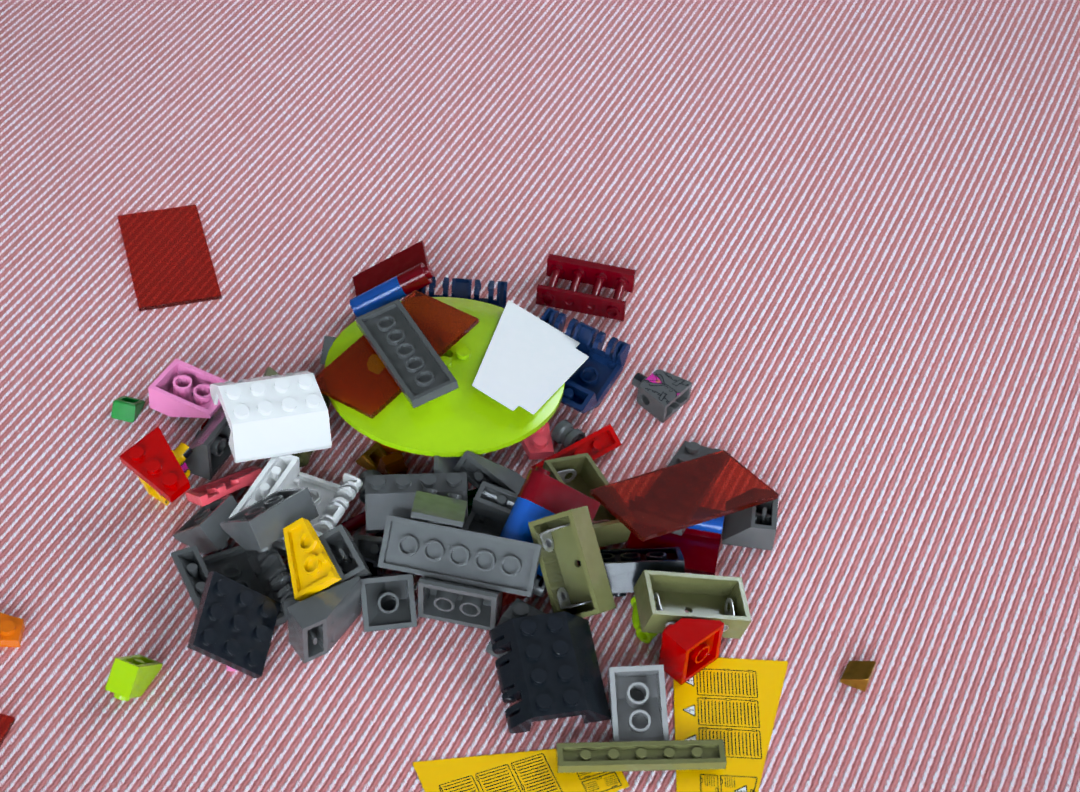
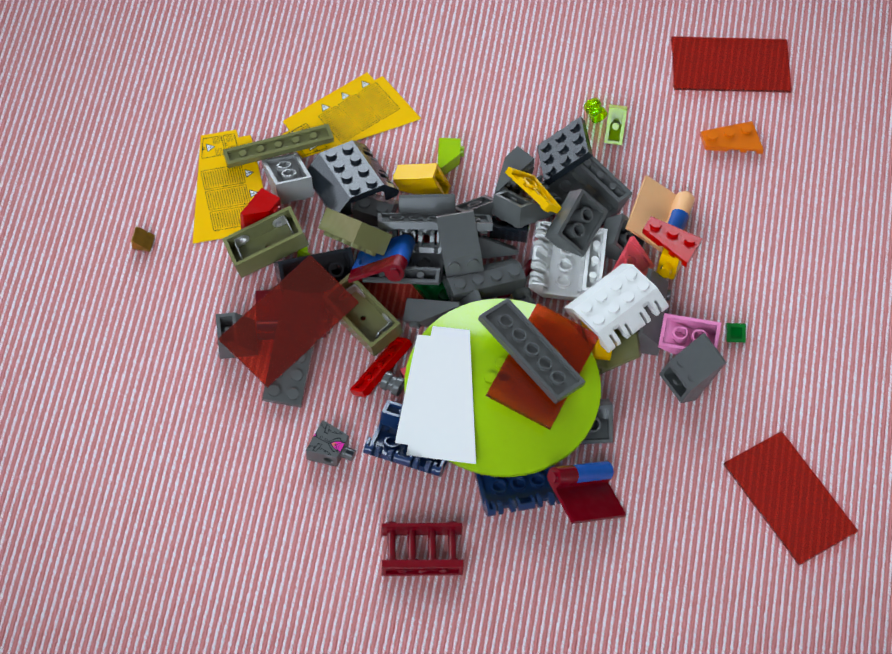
camera: 165 degrees right, 15 degrees up
(141, 536) = (659, 203): none -> light nougat door
(152, 701) = (595, 110): none -> clear neon green wheel
(212, 350) = (693, 369): none -> dark grey slope
(396, 685) = (449, 153): none -> lime slope
(450, 653) = (421, 179): none -> yellow slope

